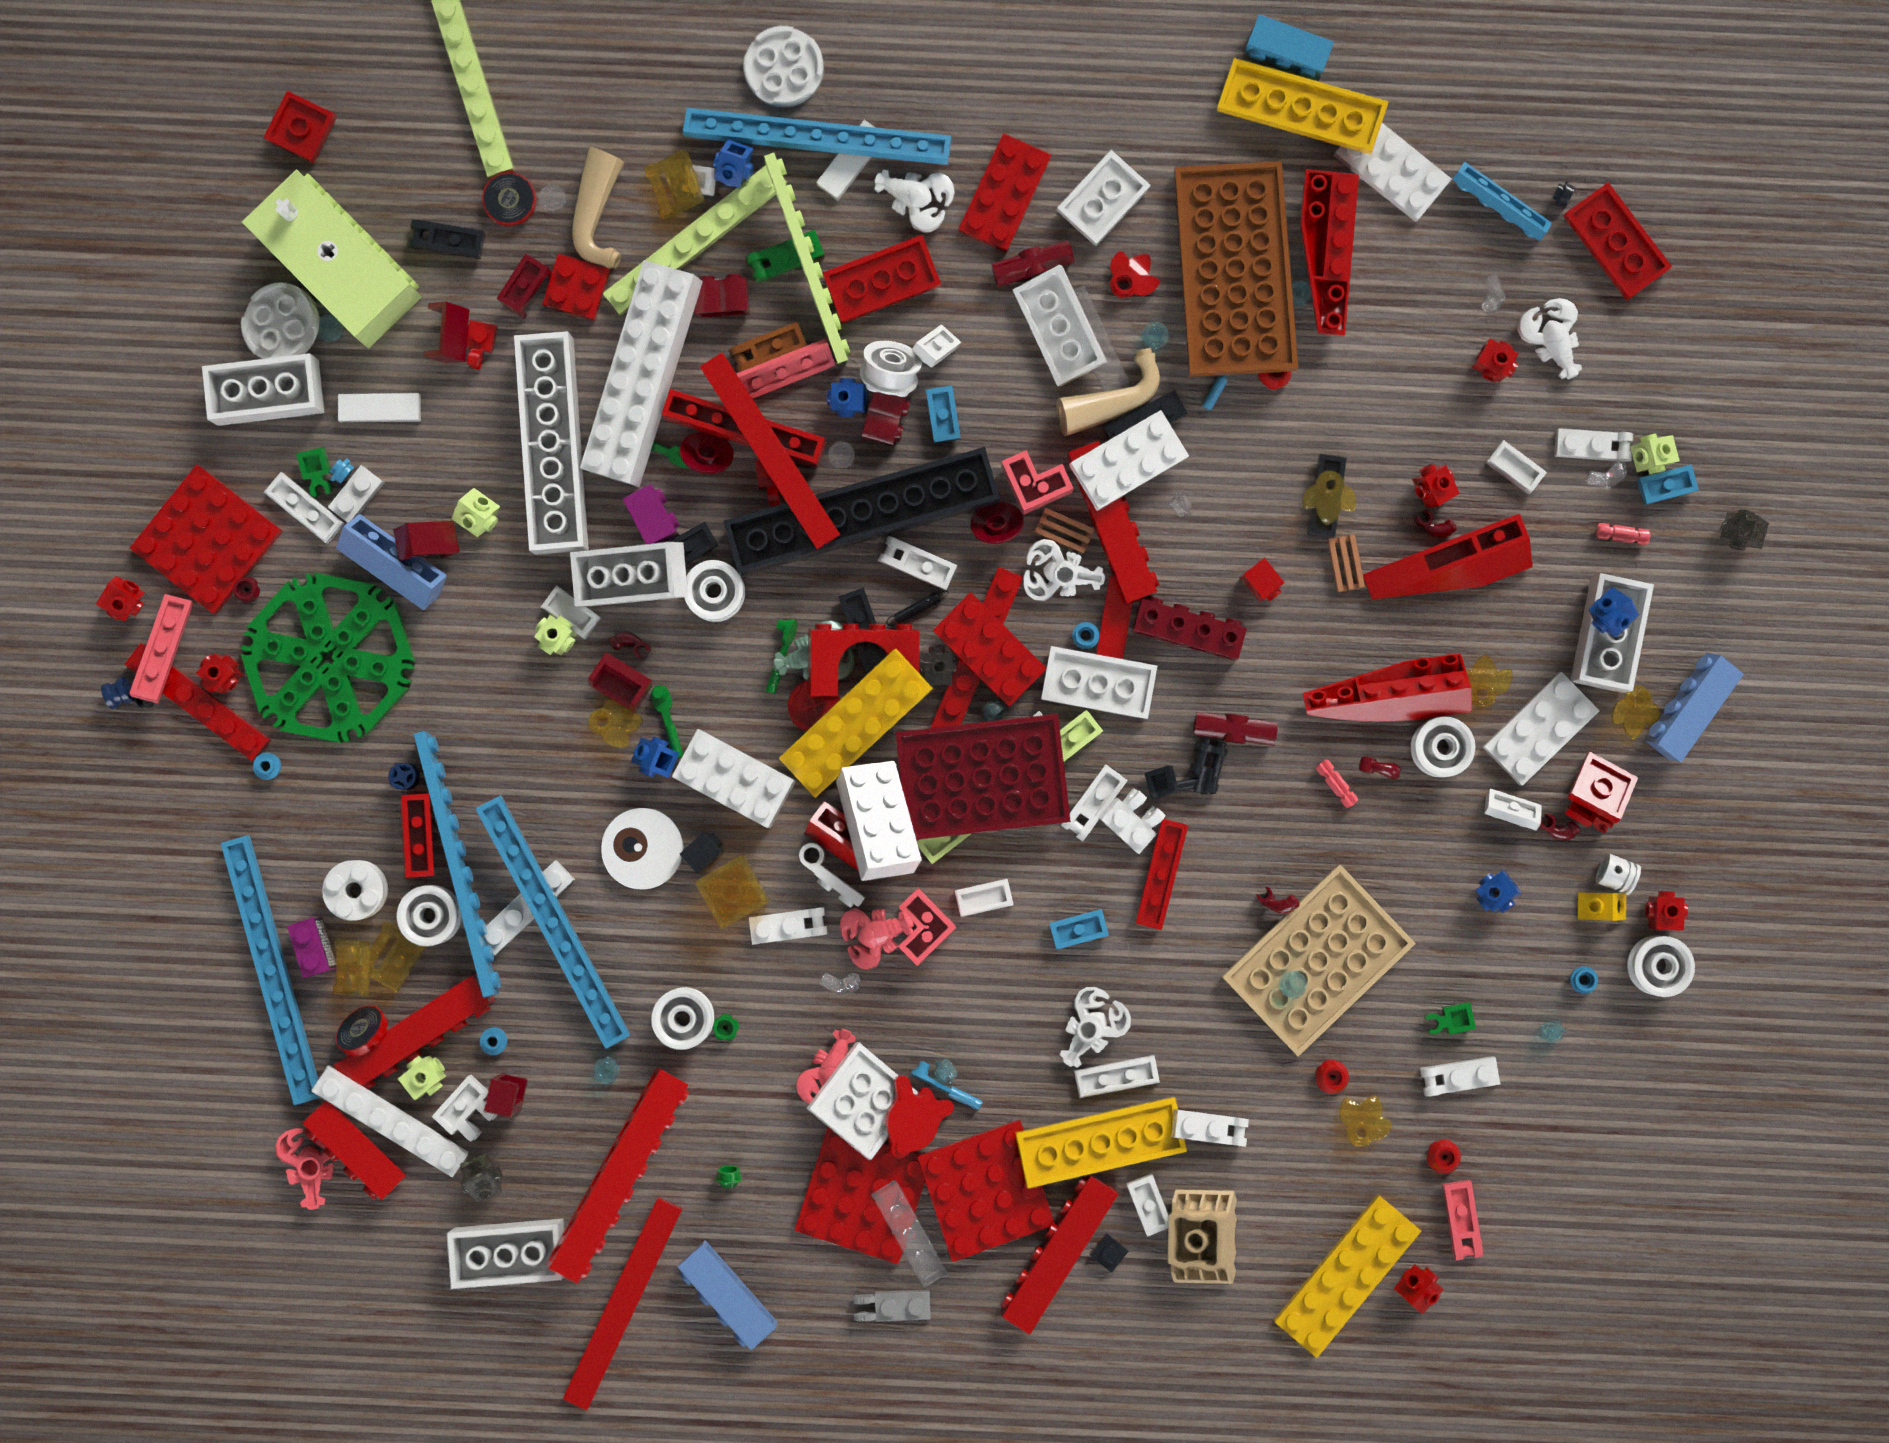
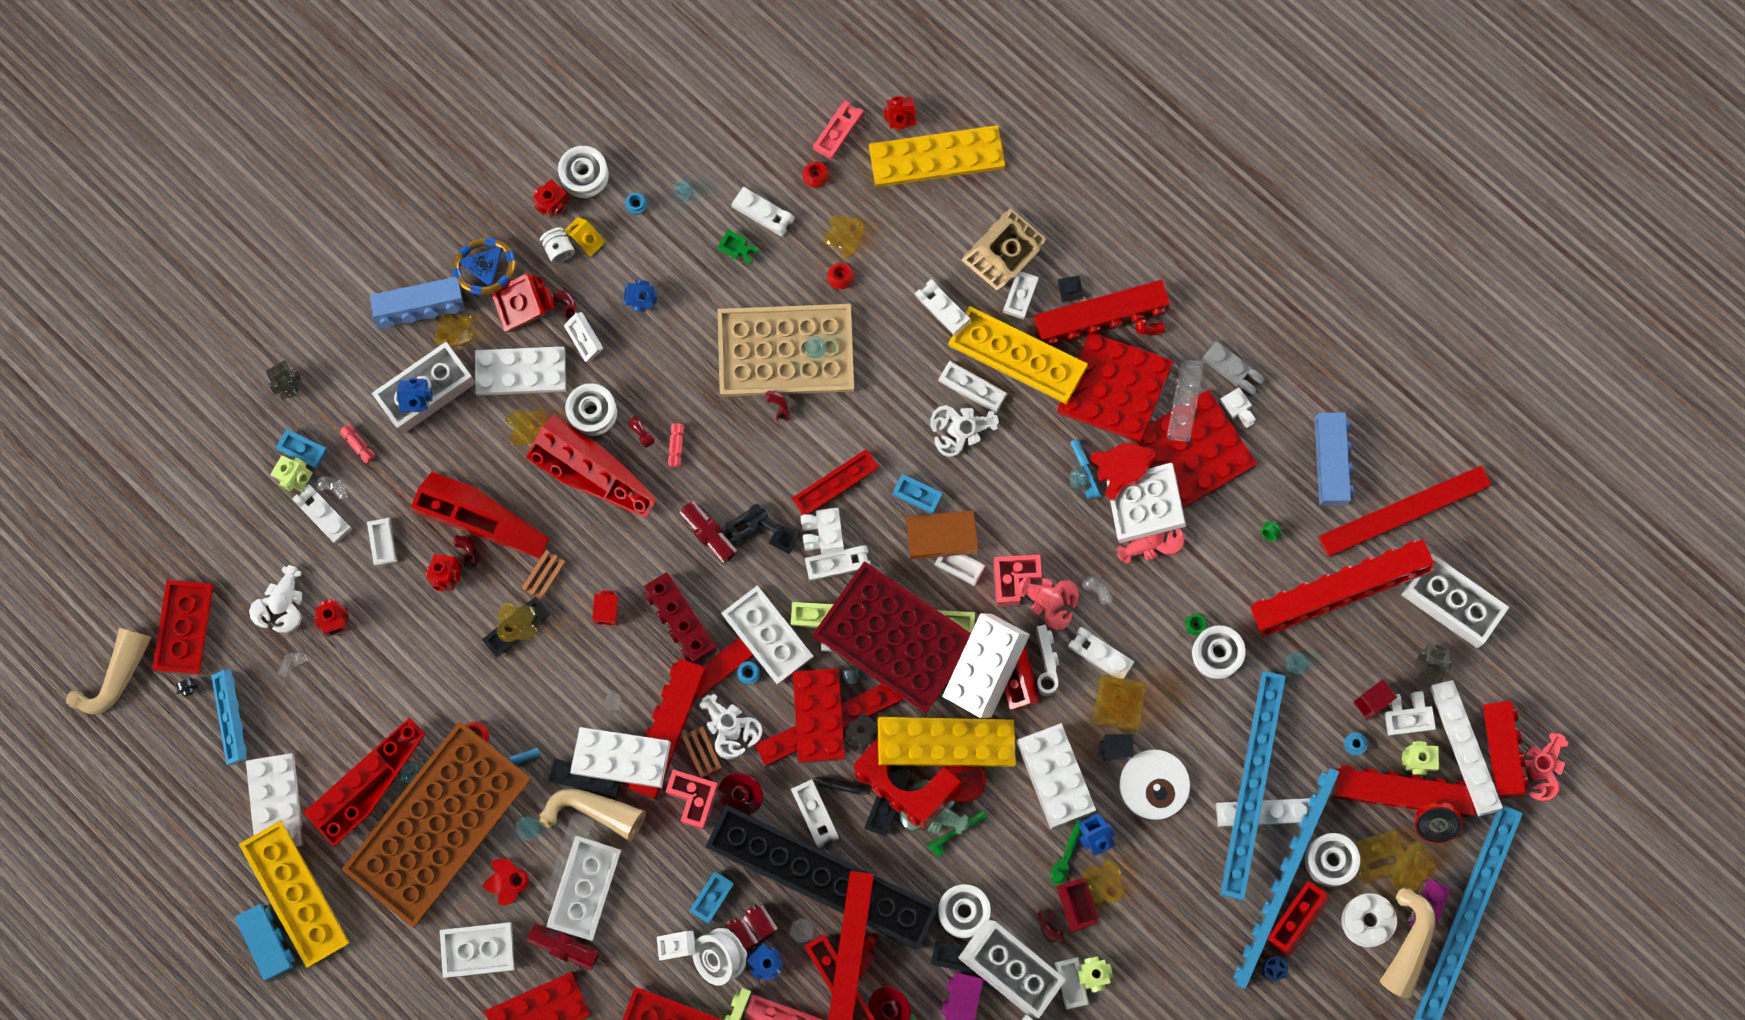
camera: 140 degrees left, 10 degrees down
(286, 871) = (1407, 965): none -> tan animal
(859, 1272) = (1237, 405): none -> white plate
(1005, 1272) = (1149, 330): none -> red arm
(1023, 910) = (941, 535): none -> dark orange tile
(1641, 172) = (124, 660): none -> tan animal
(1666, 795) = (484, 265): none -> piece

